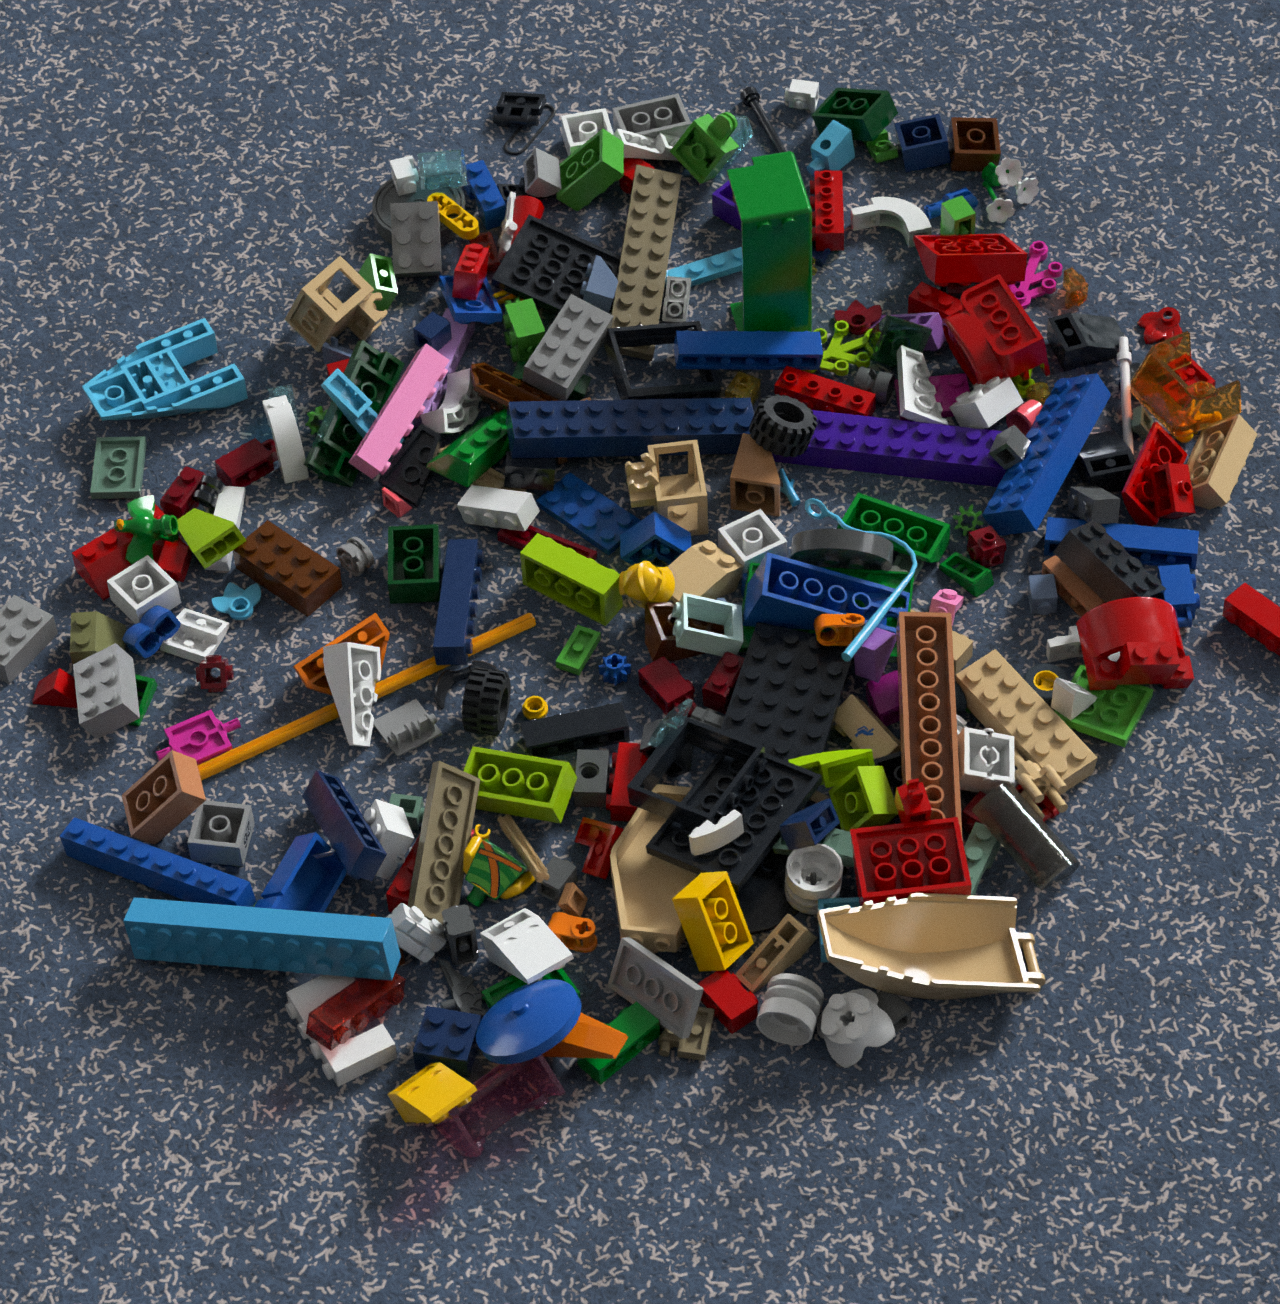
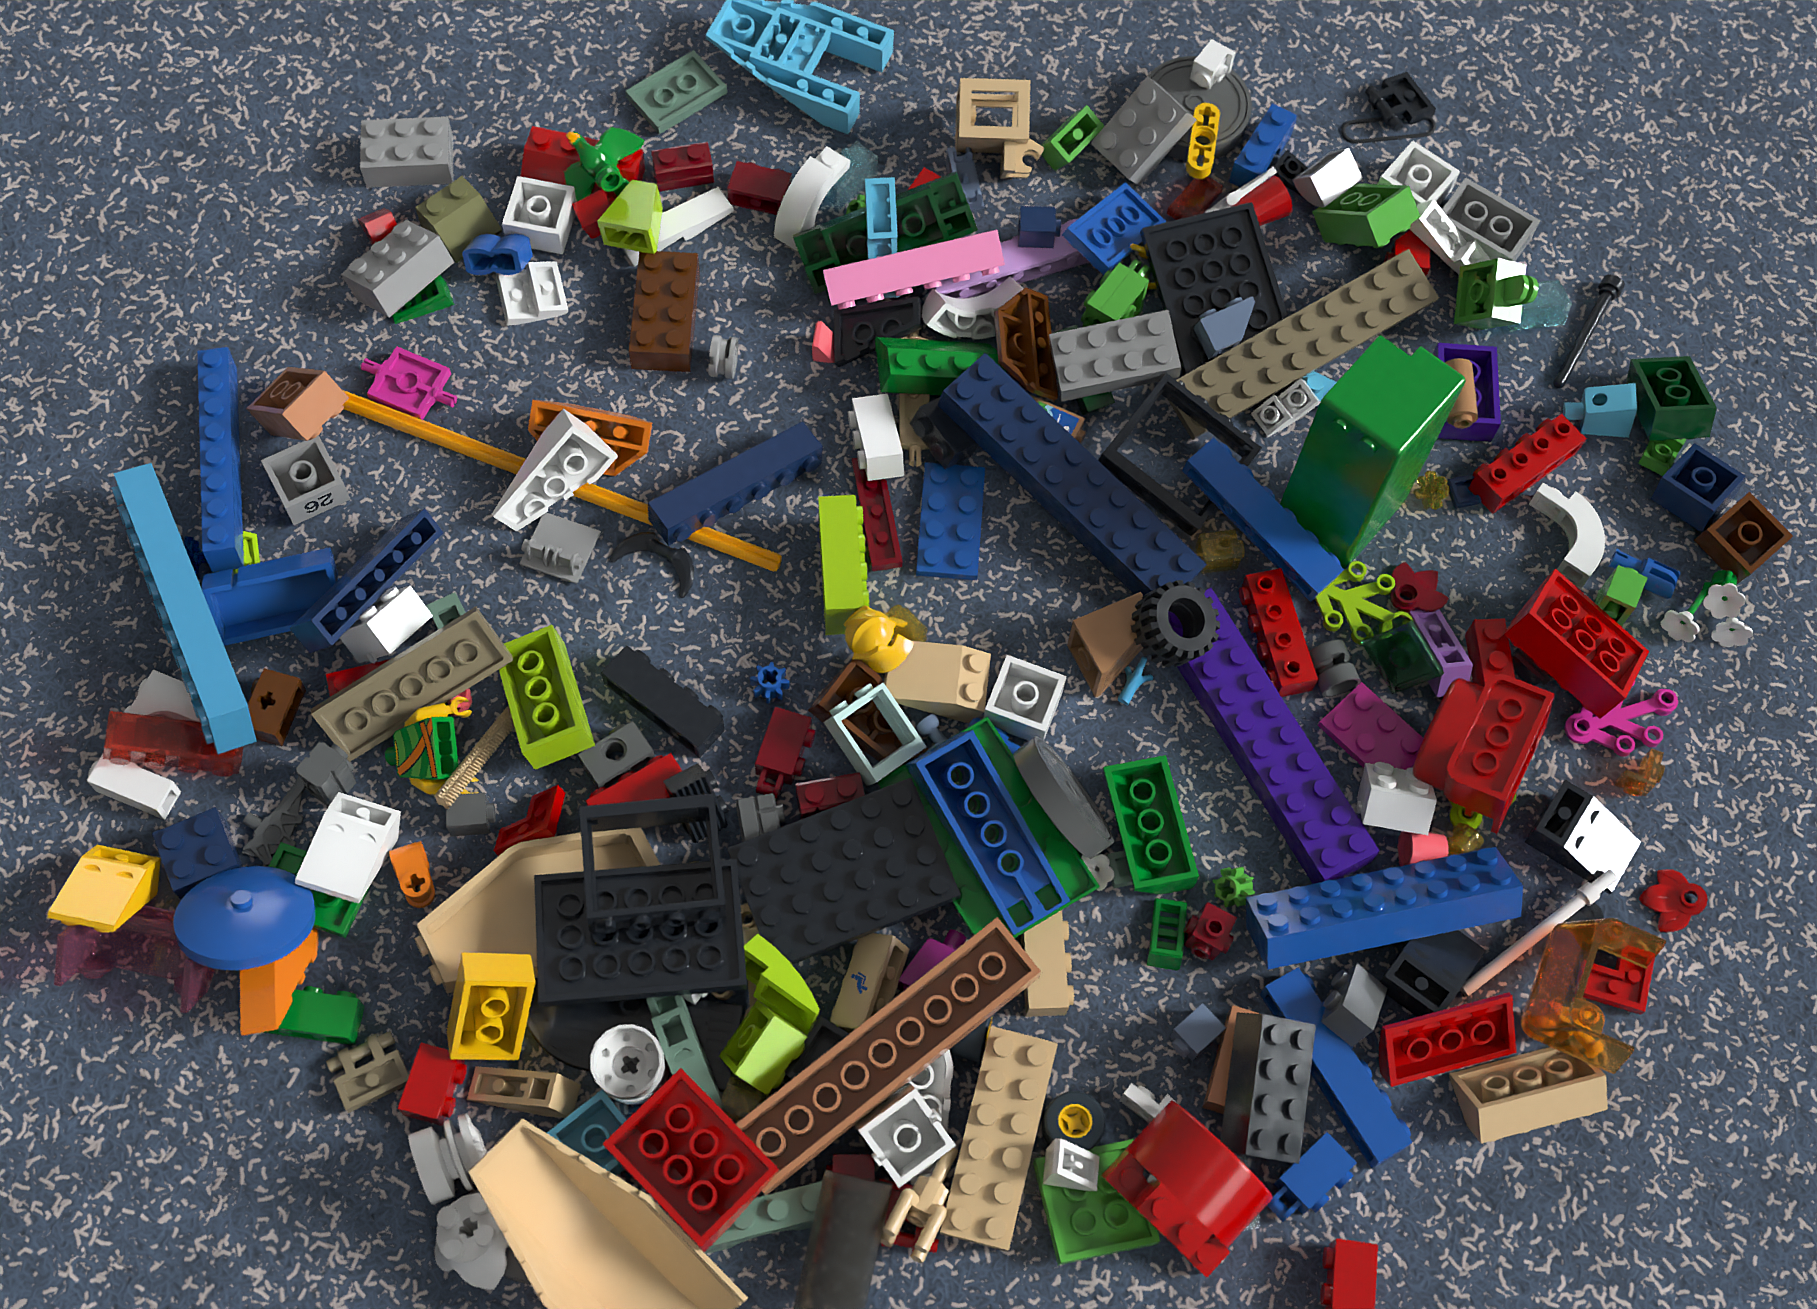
camera: 45 degrees right, 15 degrees up
(208, 491) = (695, 181): black wheel -> none
(208, 680) = (489, 340): dark red brick -> none
(236, 599) = (603, 295): medium azure plate -> none
(414, 564) = (752, 410): dark green brick -> none
(416, 932) = (291, 728): white brick -> none
(442, 169) = (1244, 90): clear light blue brick -> none
(470, 272) = (1141, 204): red brick -> none
(486, 701) = (624, 596): black tyre -> none
(532, 703) = (669, 636): yellow plate -> none
(572, 900) = (451, 848): medium nougat tile -> none
(578, 650) = (769, 632): bright green plate -> none
(654, 538) = (954, 607): blue brick -> none
(656, 986) = (379, 1007): light grey plate -> none
(674, 719) = (687, 792): clear light blue slope -> none
(675, 497) = (1019, 577): tan piece -> none
(711, 836) = (572, 930): white slope -> none
(802, 95) = (1658, 332): white brick -> none
(809, 825) = (668, 1020): dark blue slope -> none
(842, 628) = (949, 865): orange piece -> none
(874, 654) = (959, 919): medium lavender slope -> none
(876, 618) = (1008, 893): medium azure piece -> none
(912, 802) = (758, 1110): red brick -> none
(915, 390) = (1355, 716): white wing -> none
(946, 602) = (1103, 943): bright pink bracket -> none
(1009, 447) = (1347, 865): dark grey brick -> none
(1141, 422) = (1518, 974): sand green plate -> none
(1172, 491) = (1442, 1075): red brick -> none

